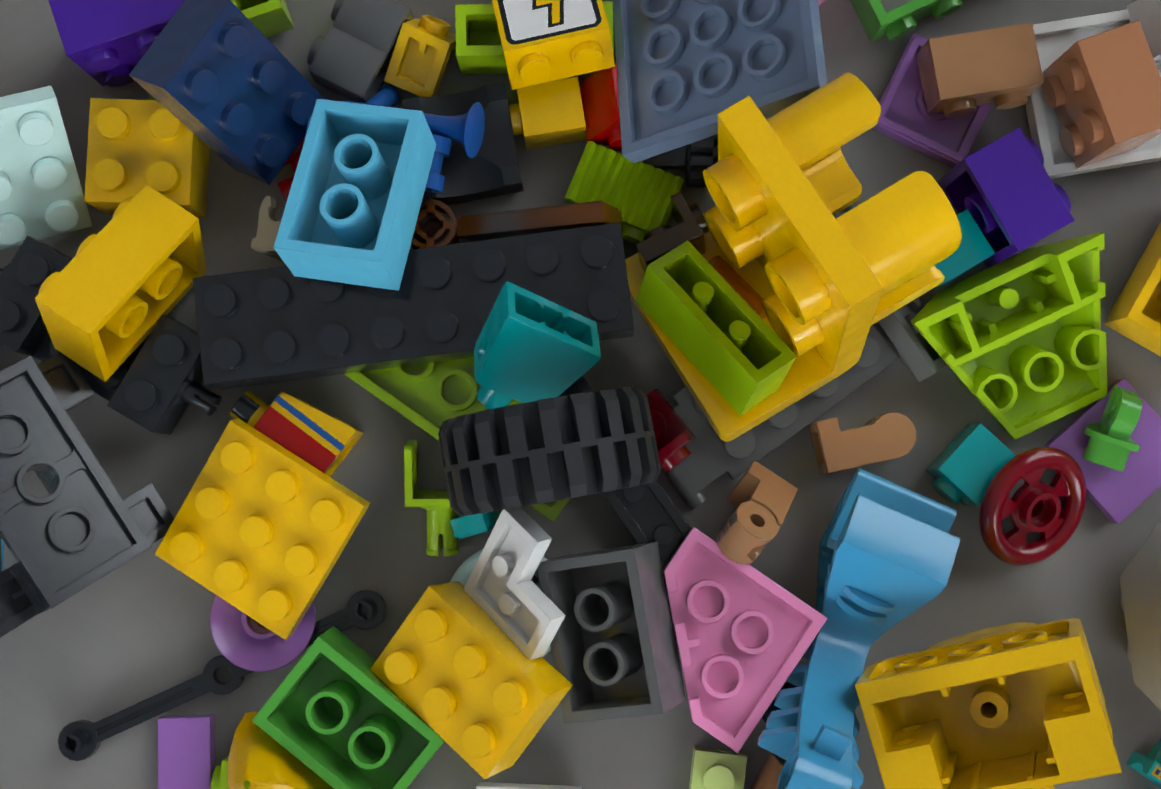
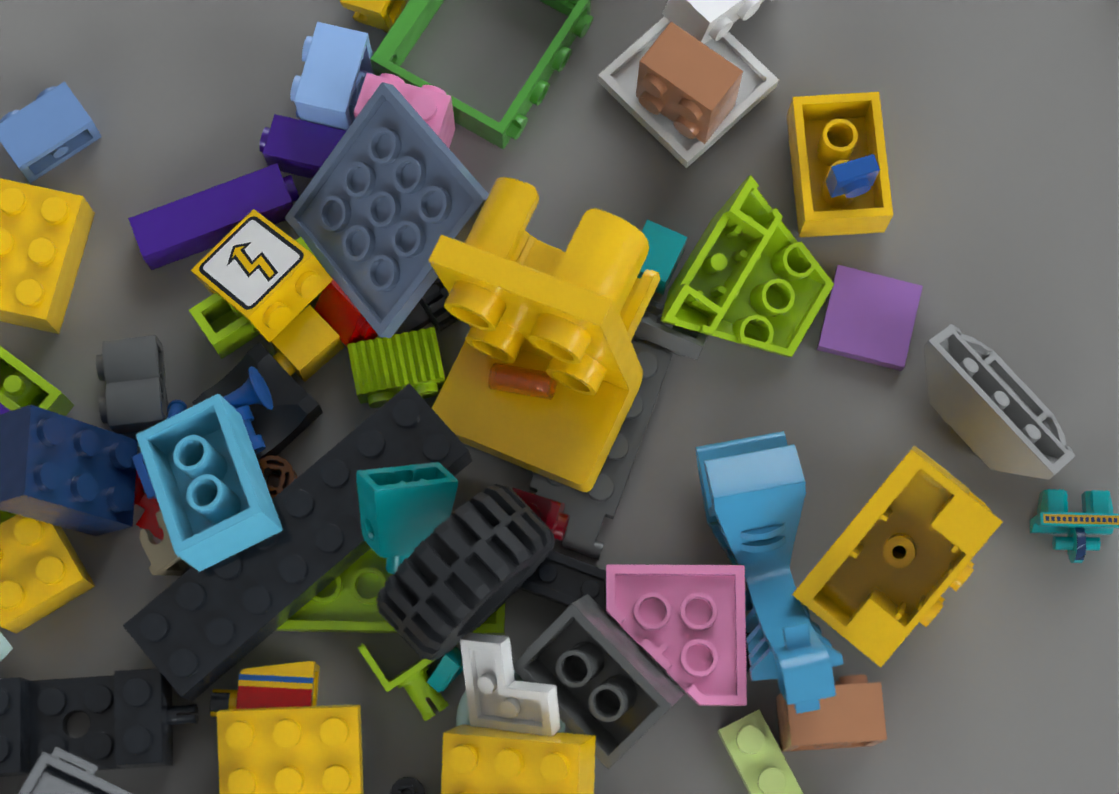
camera: 35 degrees left, 10 degrees down
(122, 282) = (71, 664): yellow brick -> none
(421, 55) = (184, 364): yellow bracket -> none
(536, 220) = (346, 423): reddish brown tile -> none
(661, 240) = (459, 376): dark brown bracket -> none
(714, 327) = (524, 412): lime brick -> none
(761, 508) = (645, 526): medium nougat leg -> none
(880, 440) = (687, 431): medium nougat leg -> none
(906, 117) = (576, 161): medium lavender tile -> none
(968, 465) = (773, 395): teal brick -> none
(980, 70) = (590, 120): medium nougat brick -> none
(1008, 195) = (668, 192): dark purple brick -> none
(1033, 506) = (835, 393): dark red plate -> none
(1111, 439) = (855, 313): bright green piece -> none

